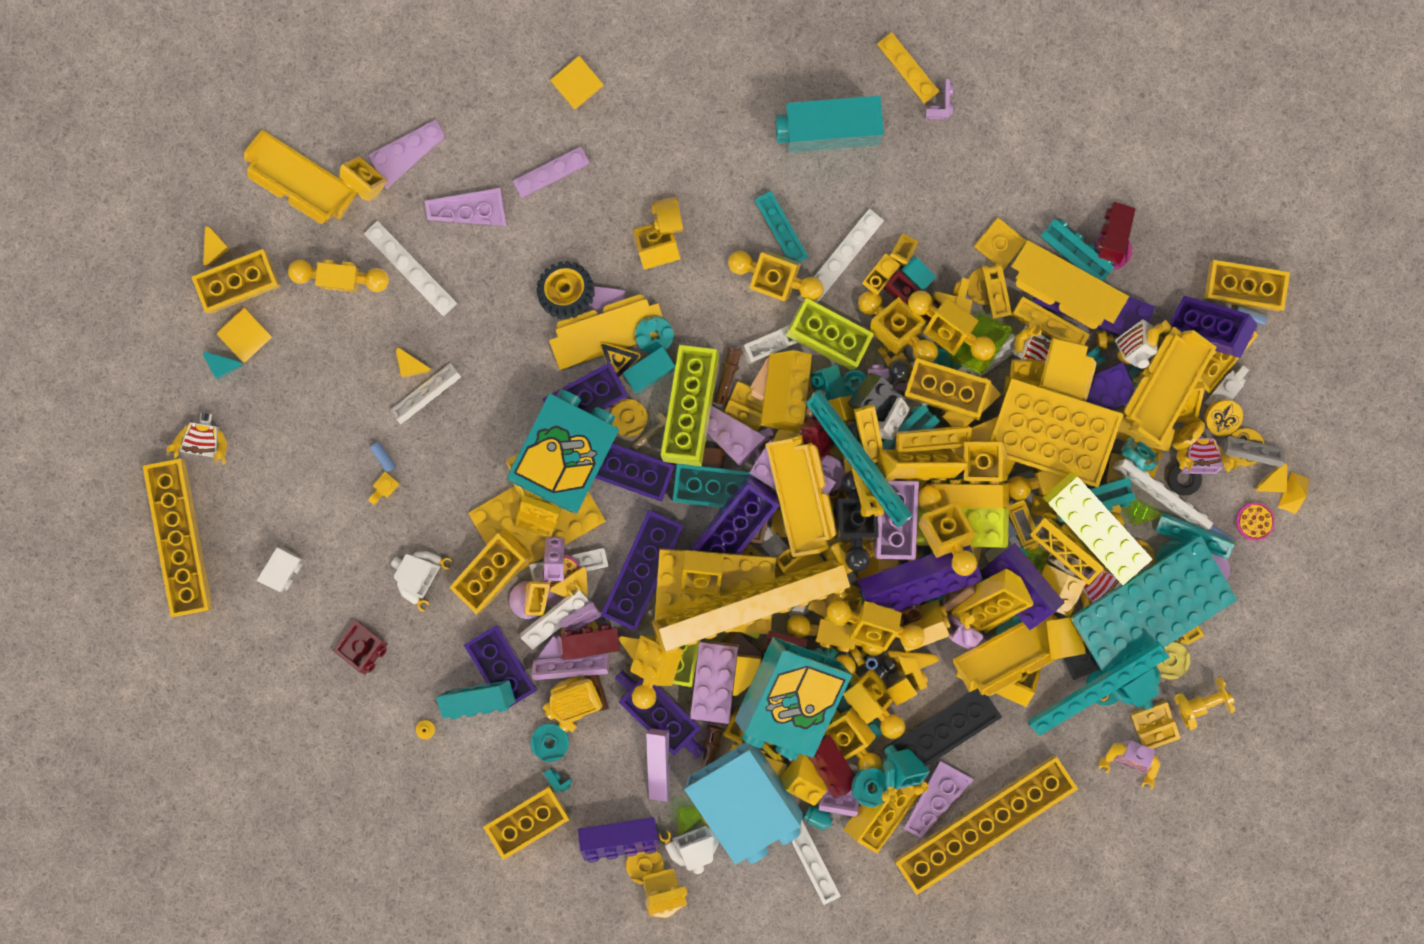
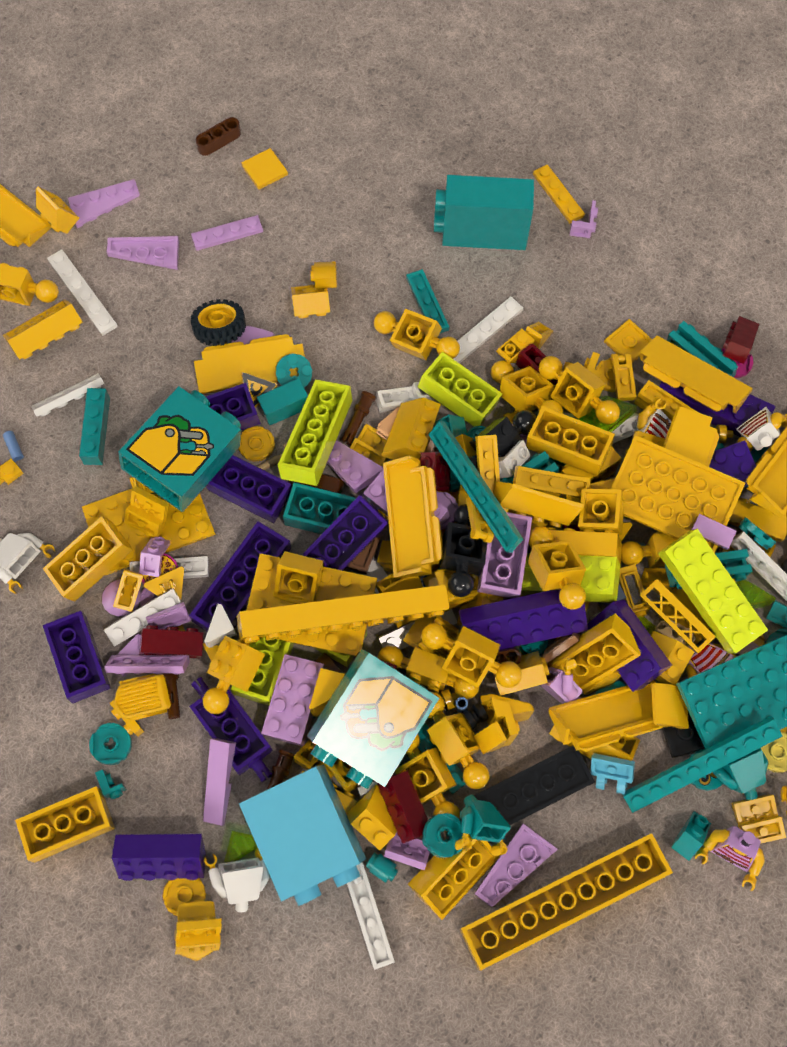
camera: 10 degrees right, 20 degrees down
(380, 320) = (43, 329): none -> yellow slope
(409, 365) = (59, 369): yellow slope -> none
(462, 425) = (94, 426): none -> teal brick
(476, 699) = (40, 682): teal brick -> none
(521, 40) = (218, 136): none -> reddish brown beam
(634, 625) = (219, 627): none -> white slope
(918, 273) = (551, 346): teal slope -> none
(1019, 703) = (612, 768): none -> medium azure plate
(1094, 749) = (691, 835): none -> teal slope
(1095, 468) = (714, 531): none -> lavender tile

